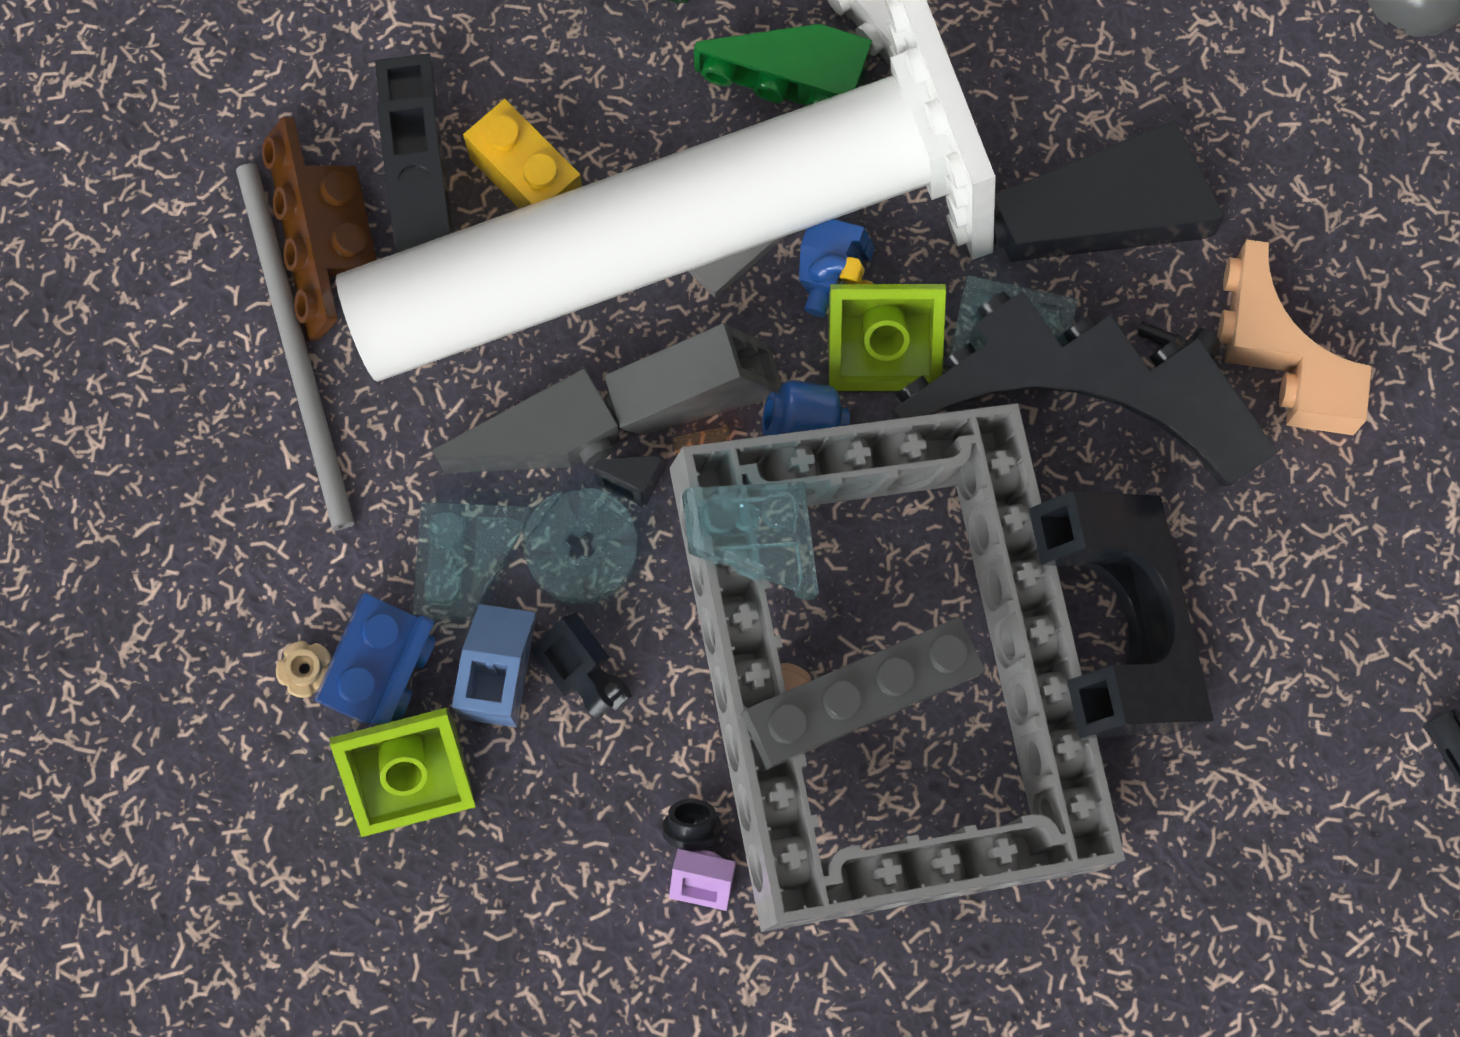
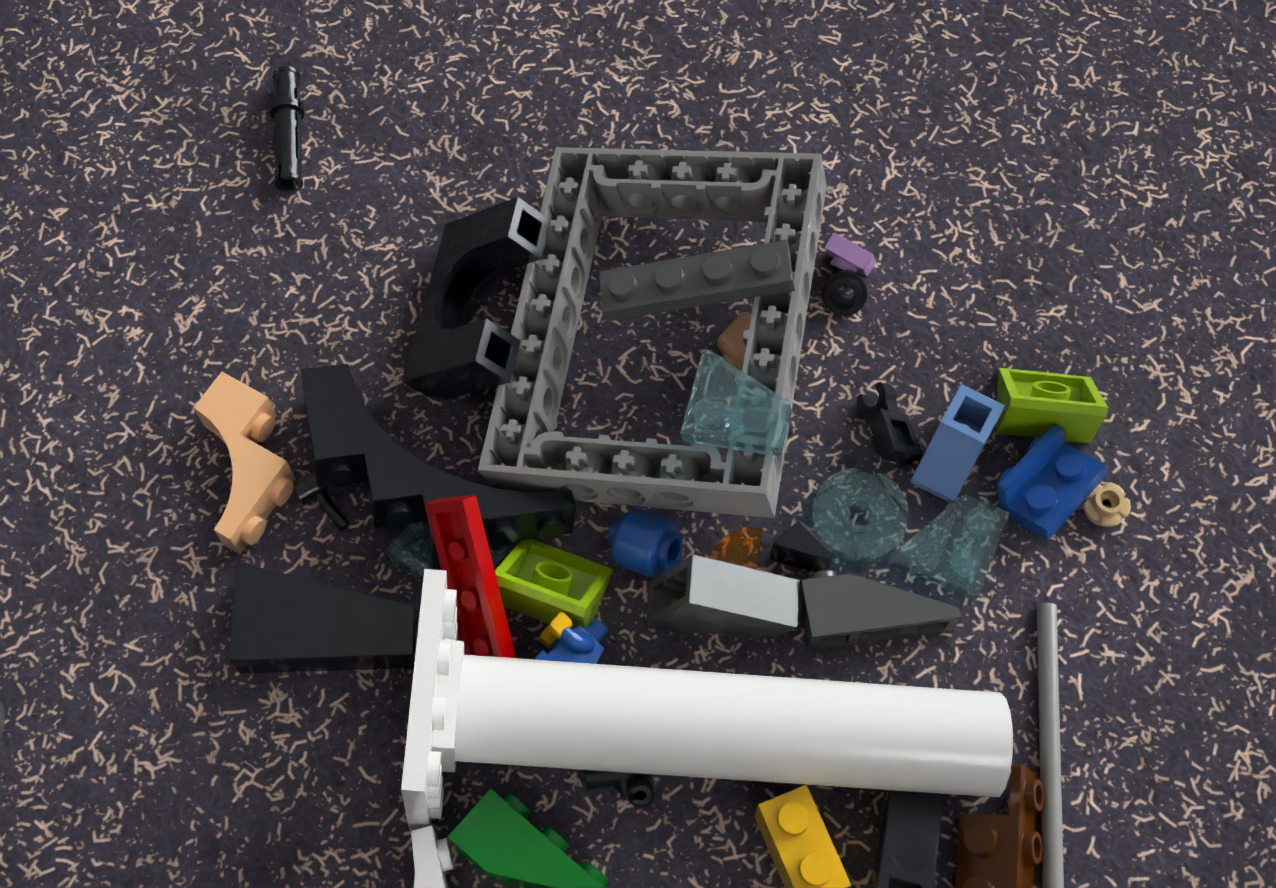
camera: 160 degrees left, 10 degrees down
(956, 263) = (470, 571): none -> red plate

